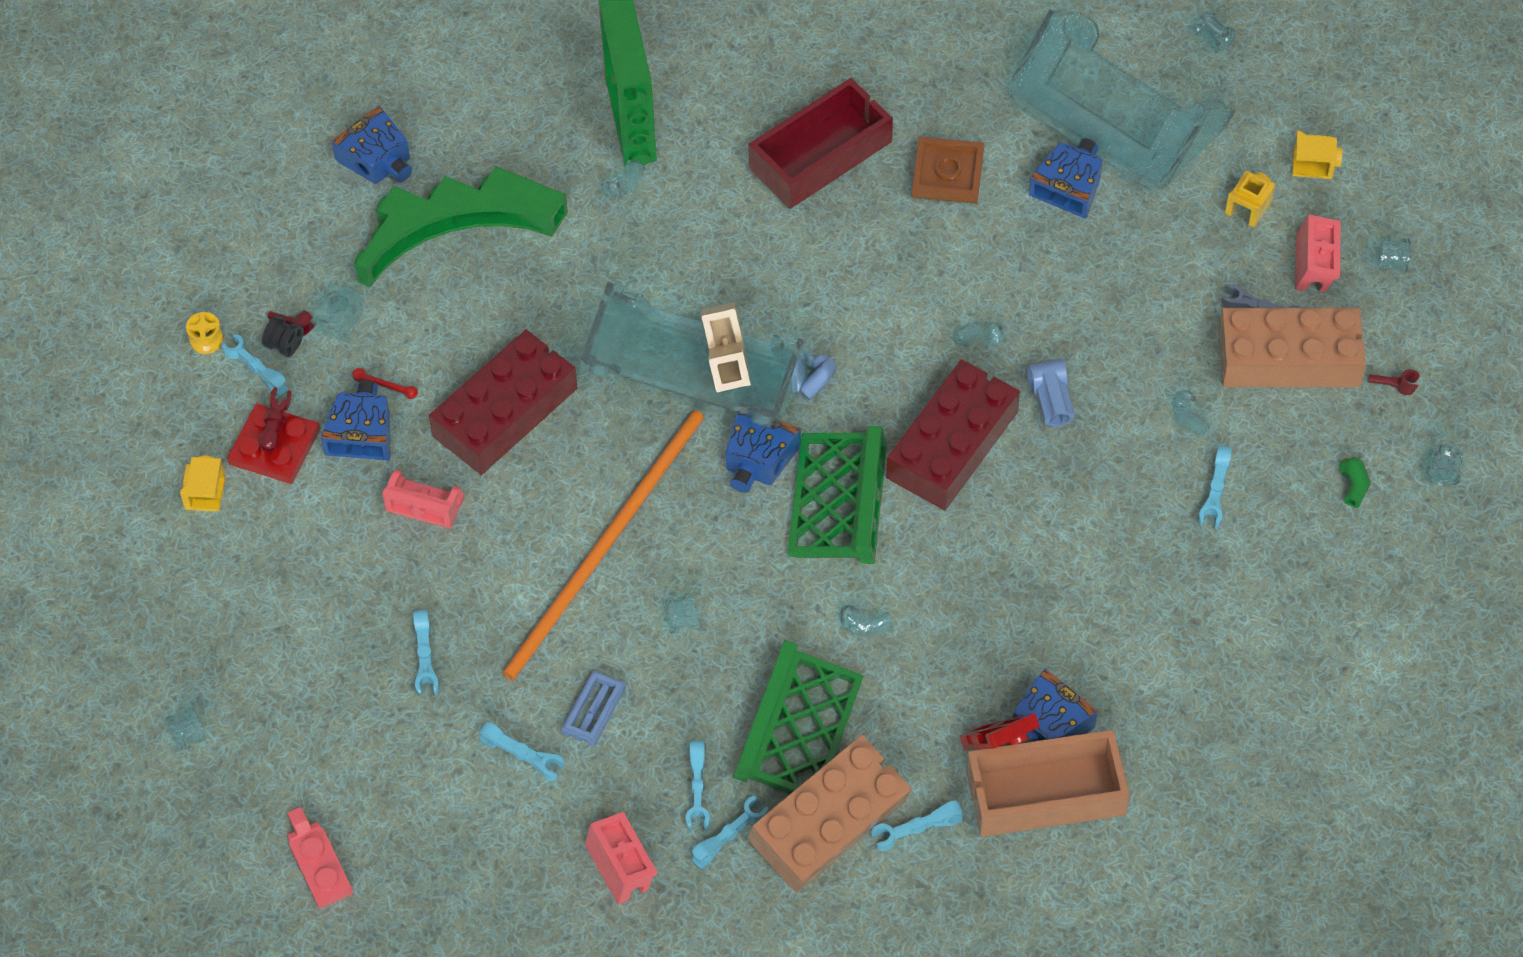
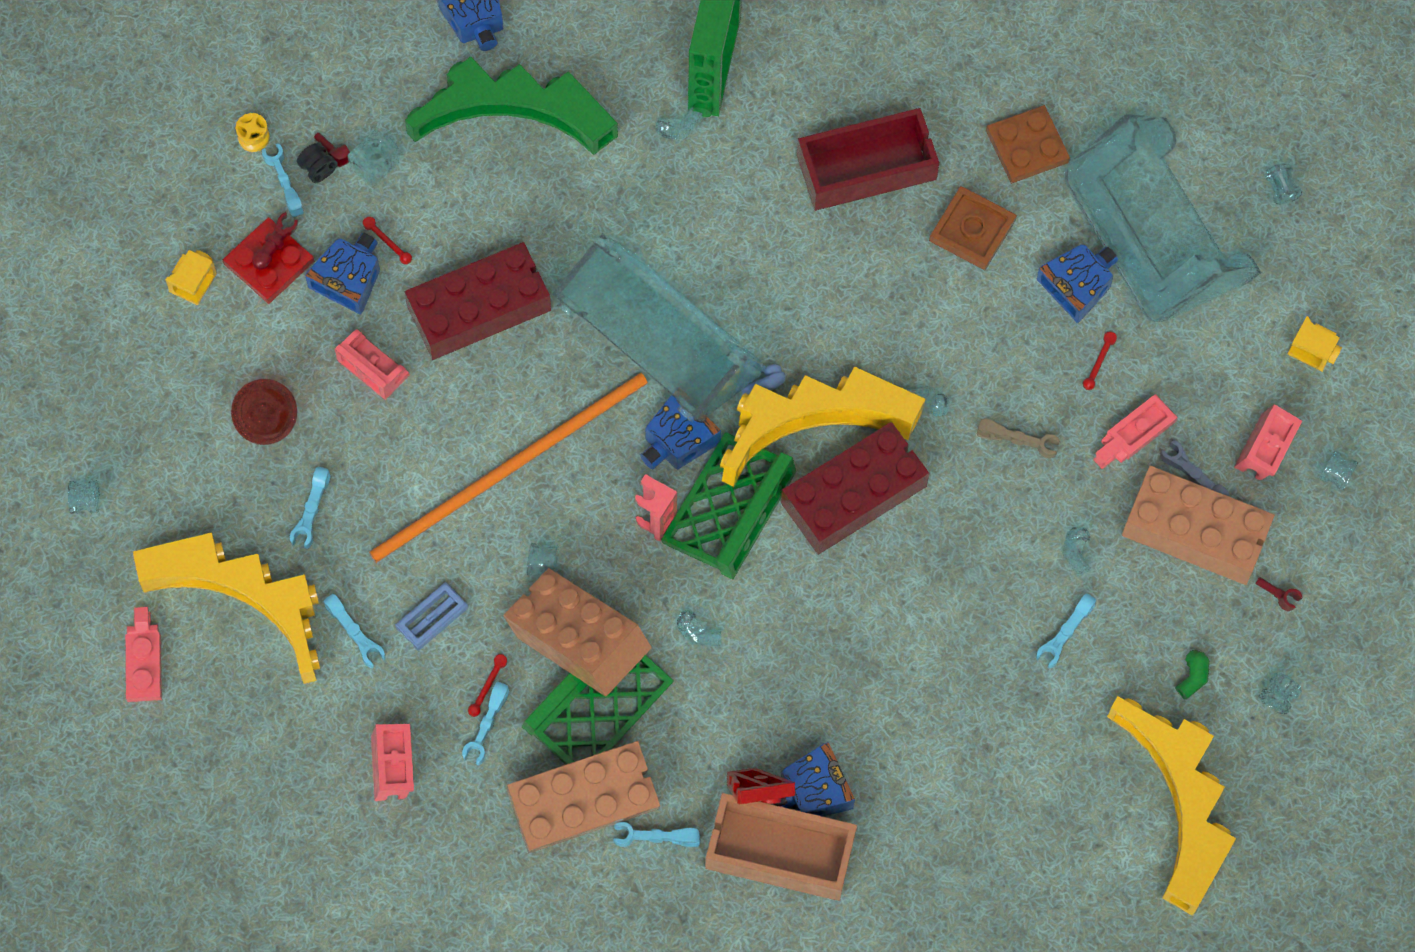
camera: 20 degrees right, 10 degrees up
(338, 577) = (264, 411): none -> clear red cone
(339, 747) = (203, 565): none -> yellow arch
(682, 725) = (500, 661): none -> red hinge
(708, 849) = (469, 784): medium azure piece -> none
(726, 347) = (687, 337): tan brick -> none
(752, 658) = (577, 632): none -> nougat piece
(771, 515) = (661, 504): none -> coral hinge
(916, 357) = (856, 401): none -> yellow arch
(961, 82) = (1027, 144): none -> dark orange plate
(1050, 385) = (963, 475): medium blue piece -> none
(1055, 338) = (993, 431): none -> dark tan piece
(1123, 221) = (1109, 339): none -> red hinge
(1190, 290) = (1135, 431): none -> coral hinge
(1252, 192) = (1236, 374): yellow window -> none
(1413, 585) = (1177, 754): none -> yellow arch

